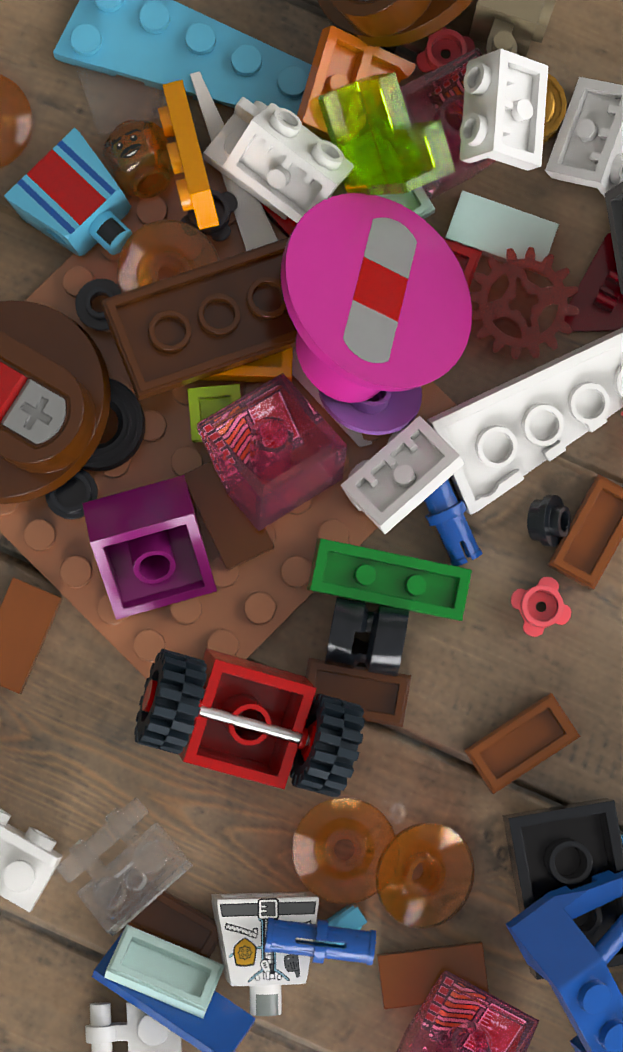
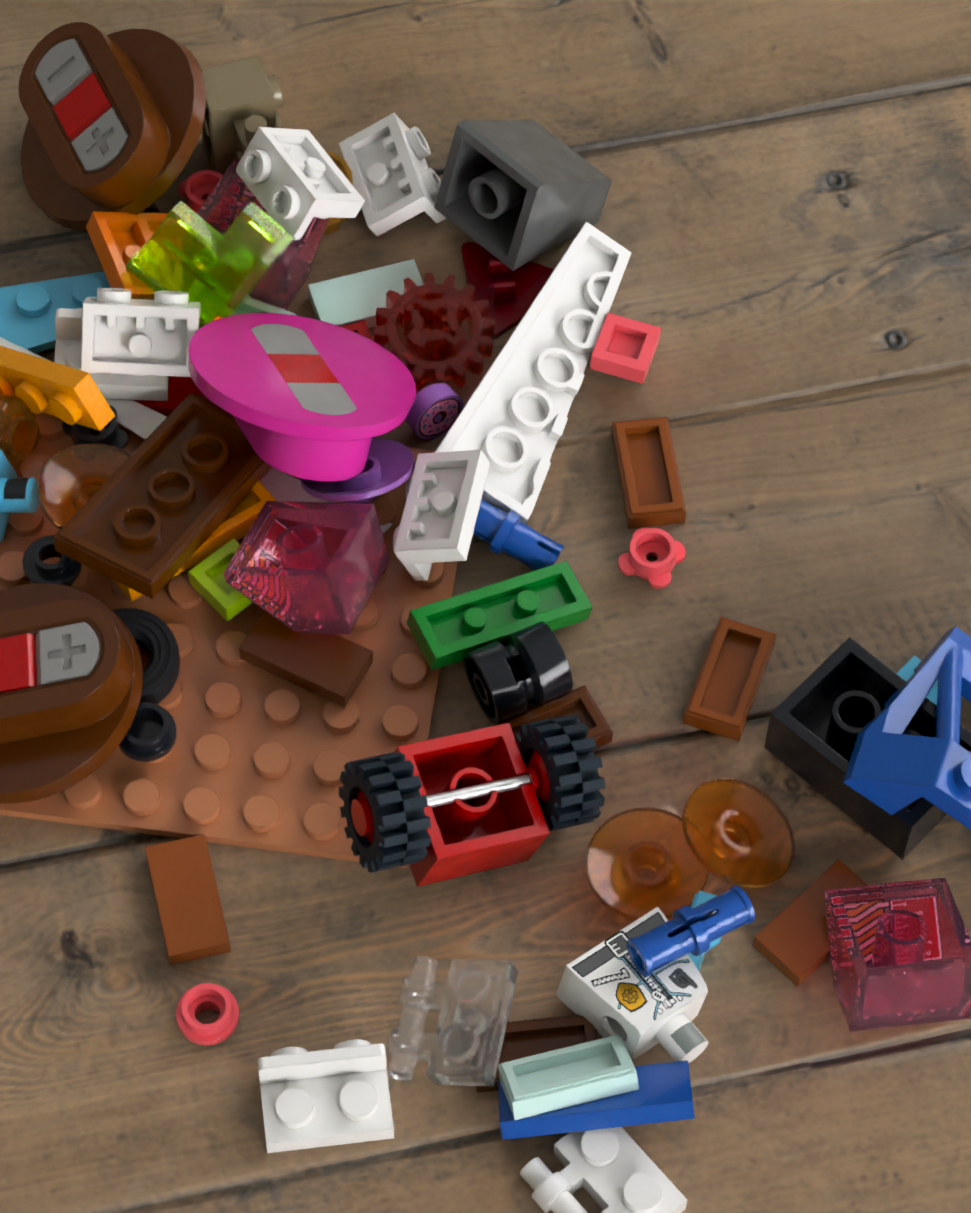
camera: 35 degrees left, 25 degrees down
(149, 547) = (258, 723): magenta slope -> none
(474, 371) = (434, 411): none -> tile
(548, 520) = (600, 481): black plate -> none

